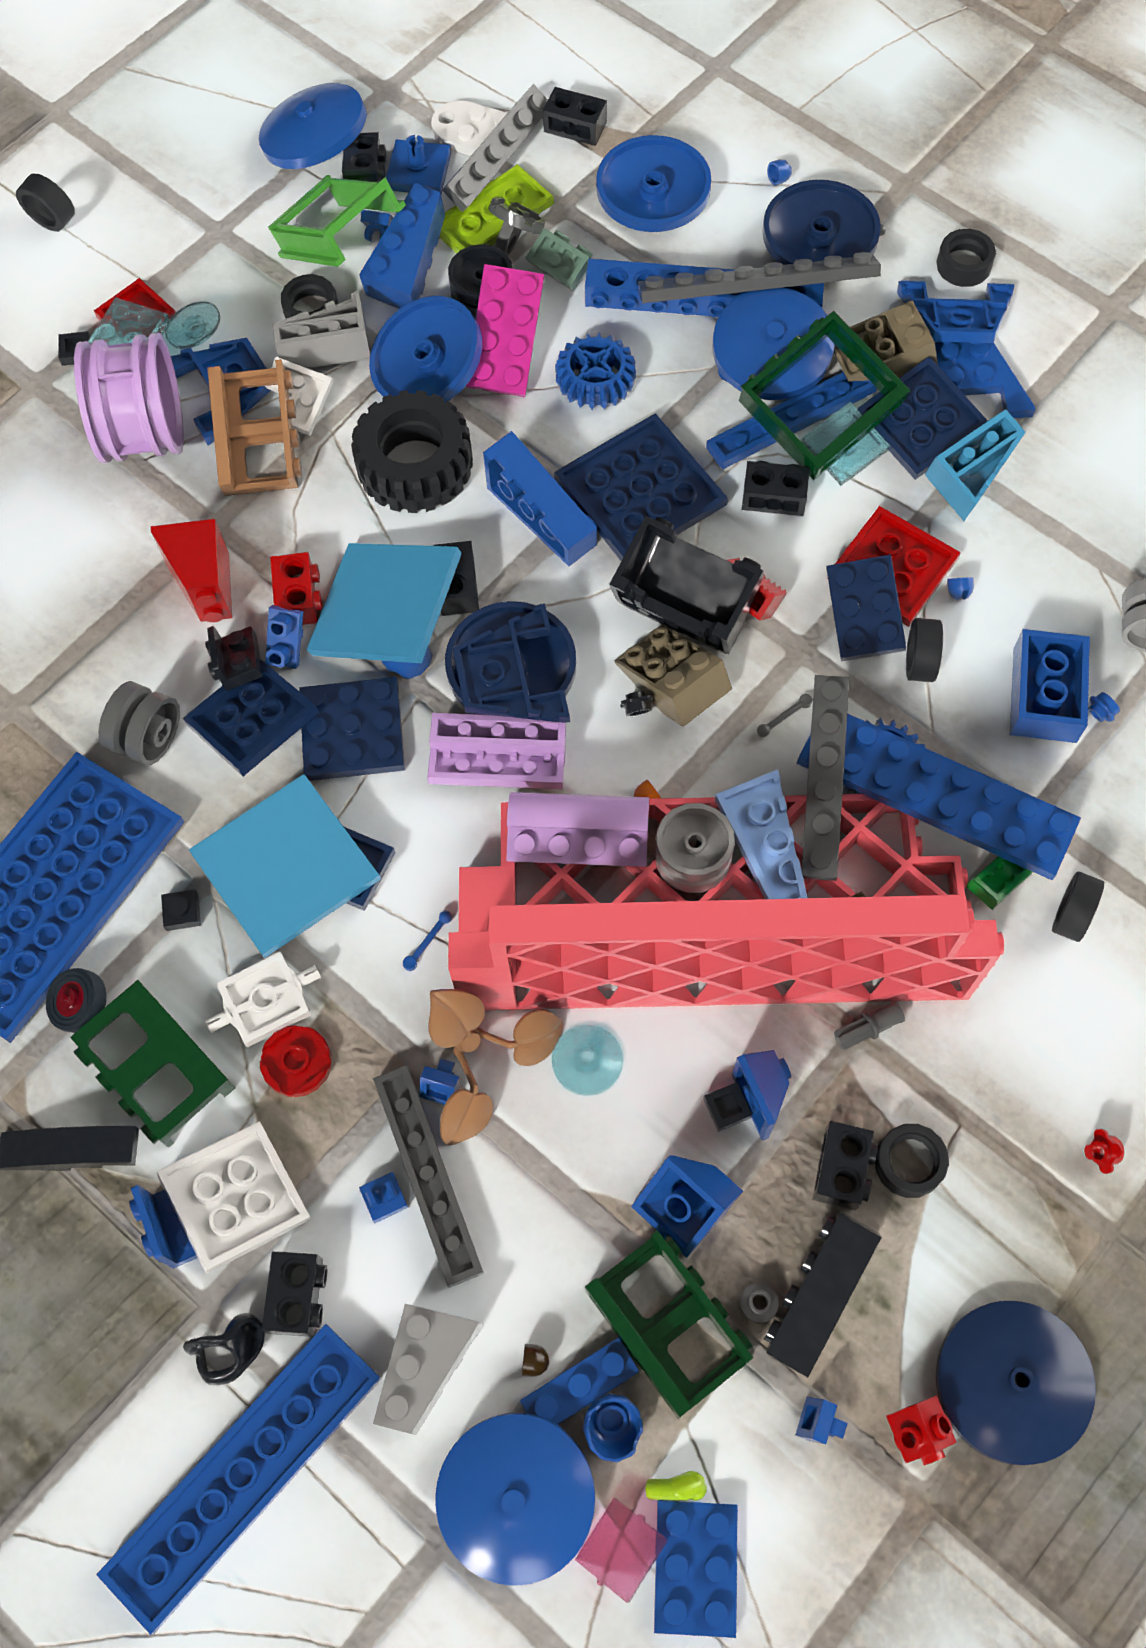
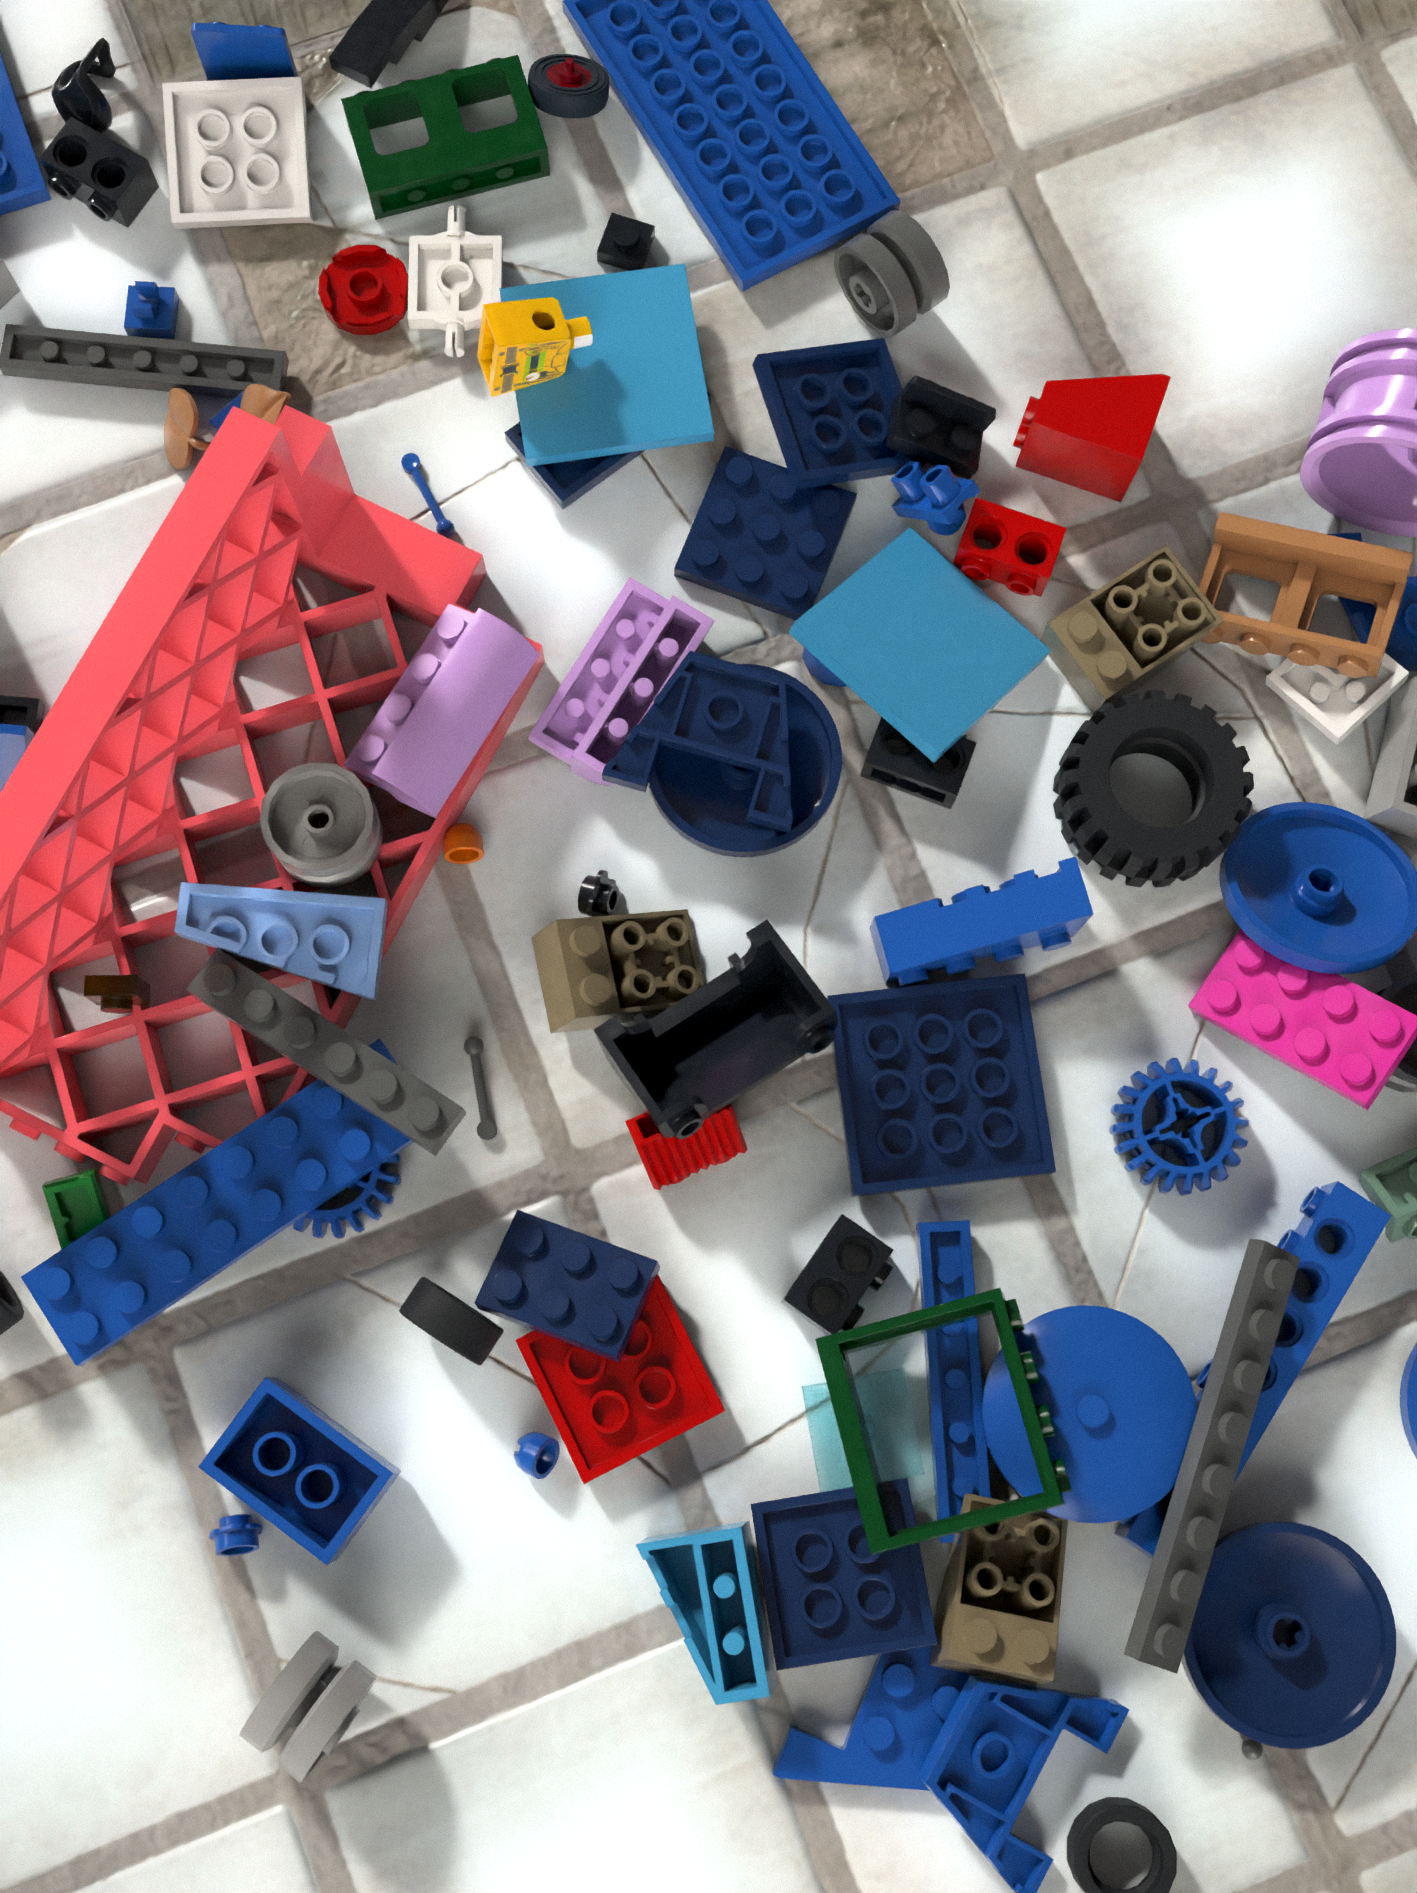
camera: 110 degrees right, 10 degrees up
(304, 898) = (527, 342): none -> yellow torso
(319, 502) = (1130, 629): none -> dark tan slope

